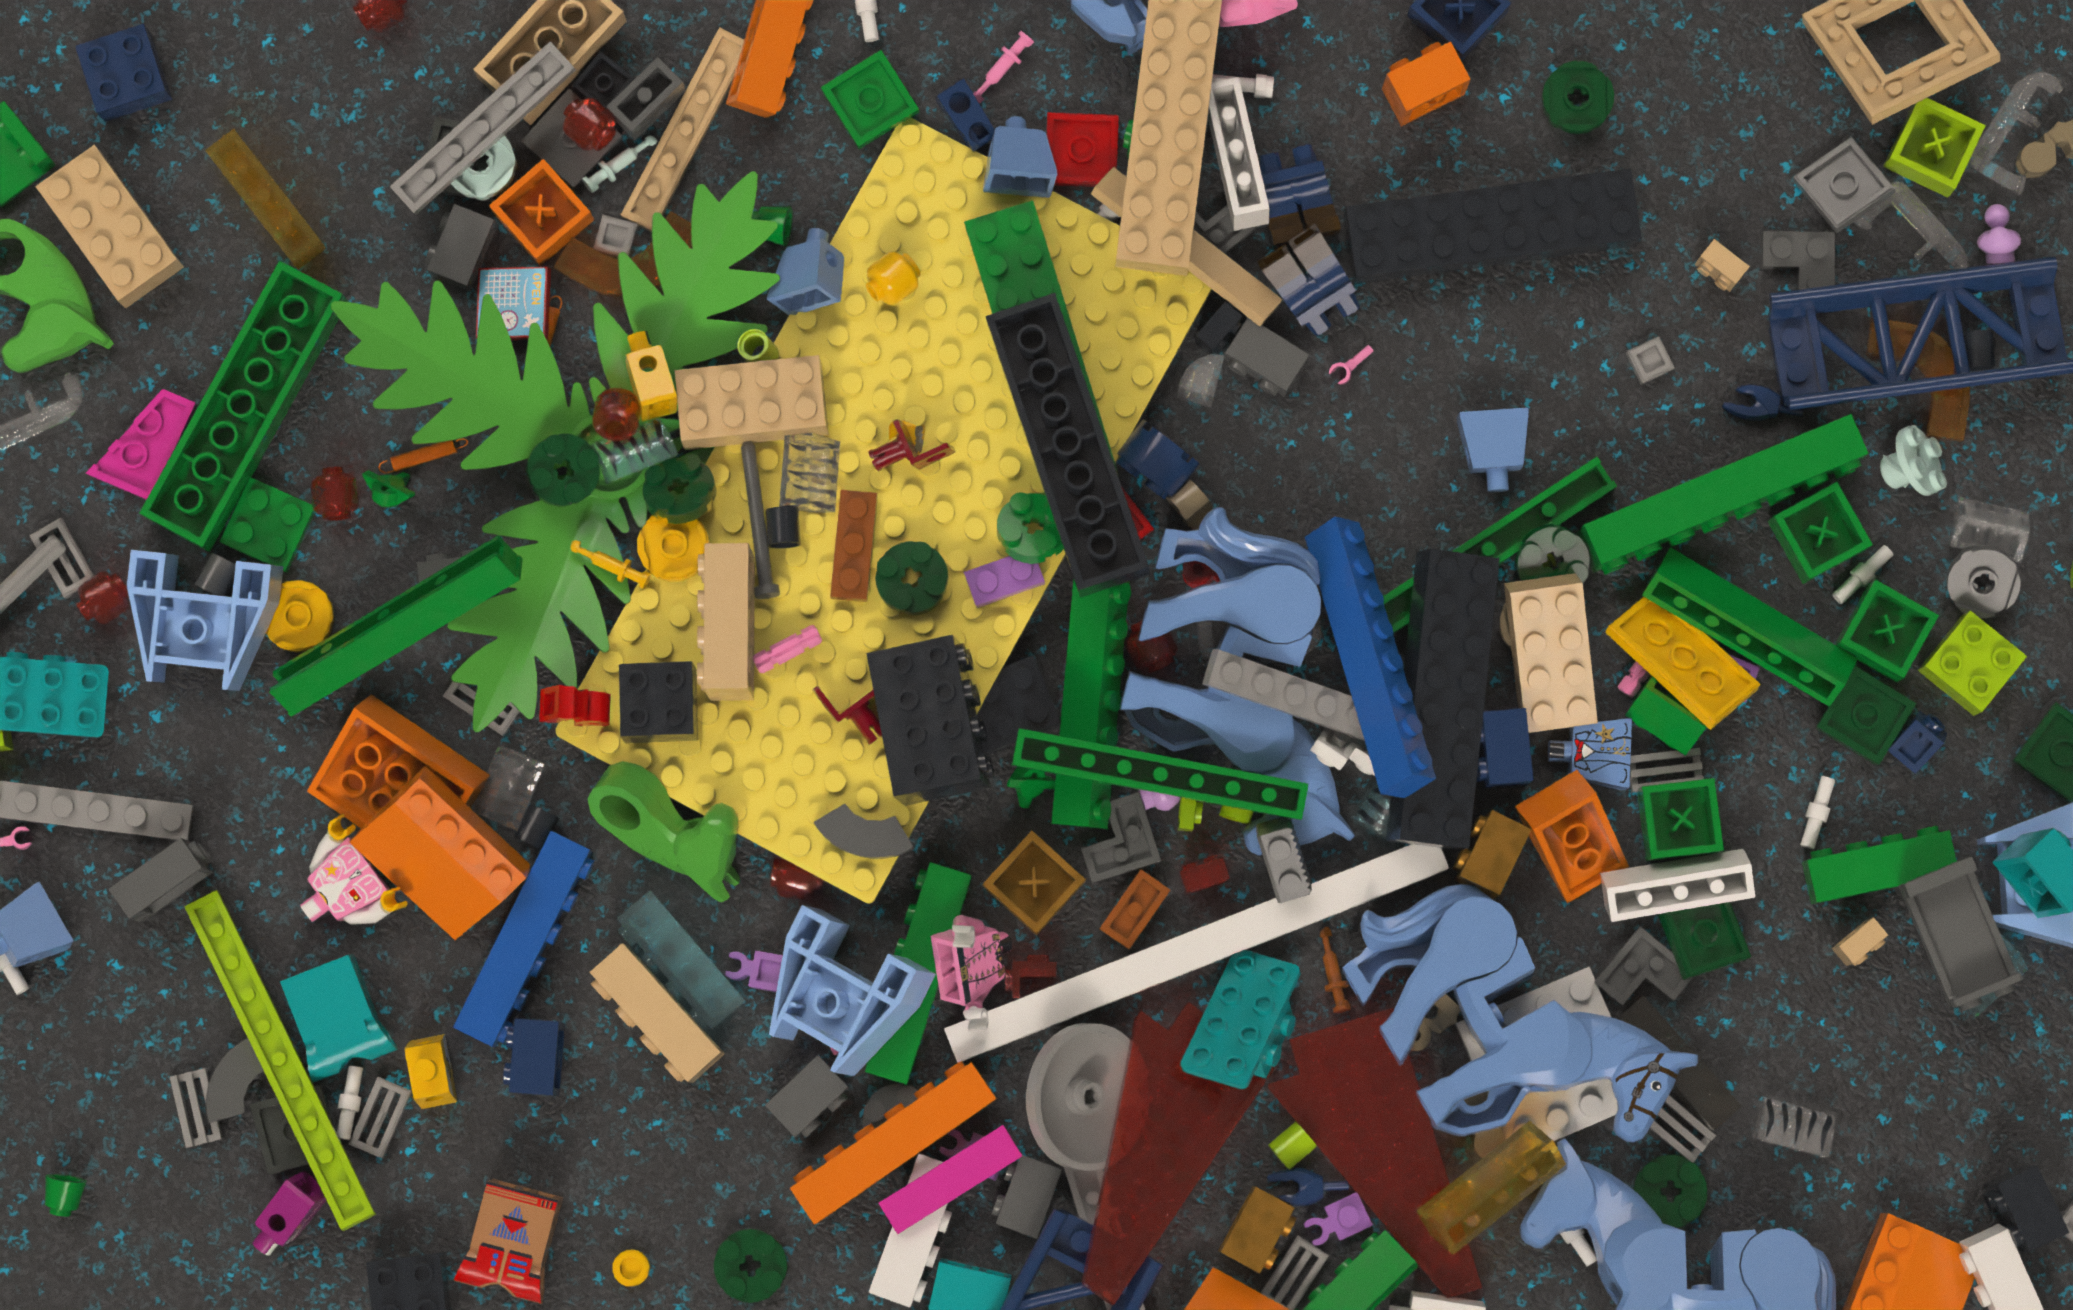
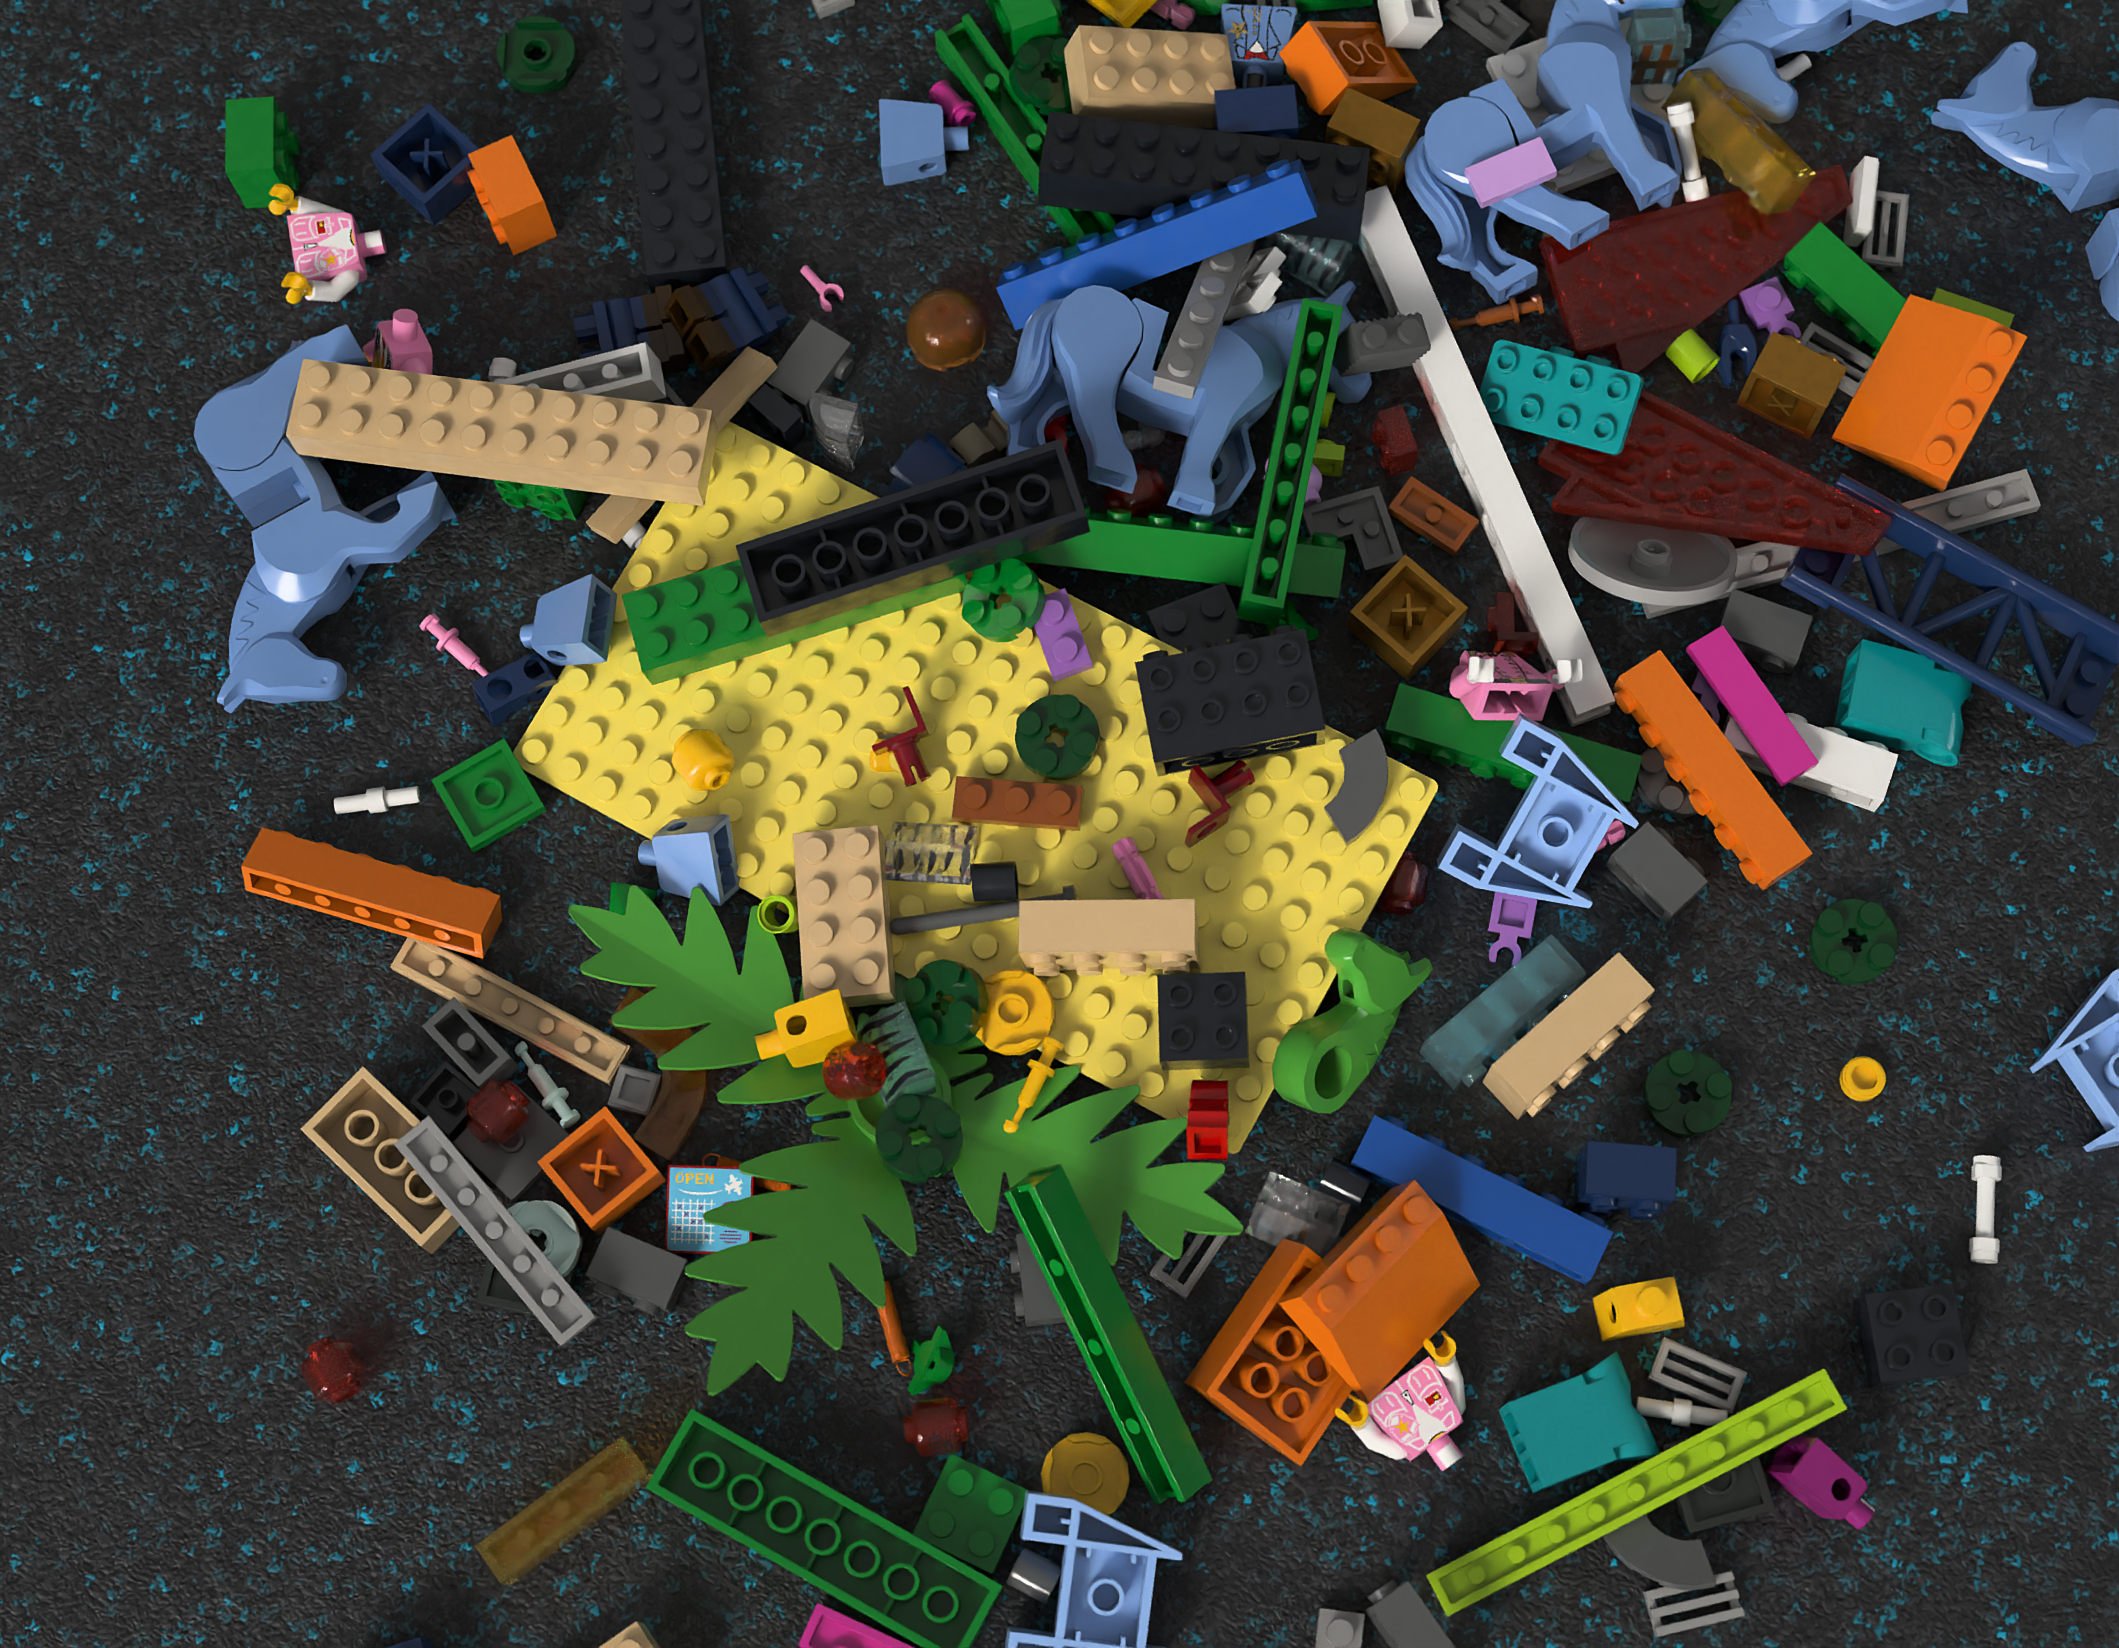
camera: 85 degrees left, 10 degrees down
(511, 1240) = (1839, 1213): piece -> none
(637, 1112) = (1682, 1069): none -> dark green plate
(1082, 146) = (557, 557): red tile -> none
(1318, 490) = (945, 329): none -> clear orange cylinder
(1438, 972) = (1510, 172): none -> lavender tile
(1509, 1135) = (1681, 117): none -> white bar
(1533, 475) = (954, 107): none -> dark pink pin
(1584, 1114) = (1657, 44): none -> clear light blue brick

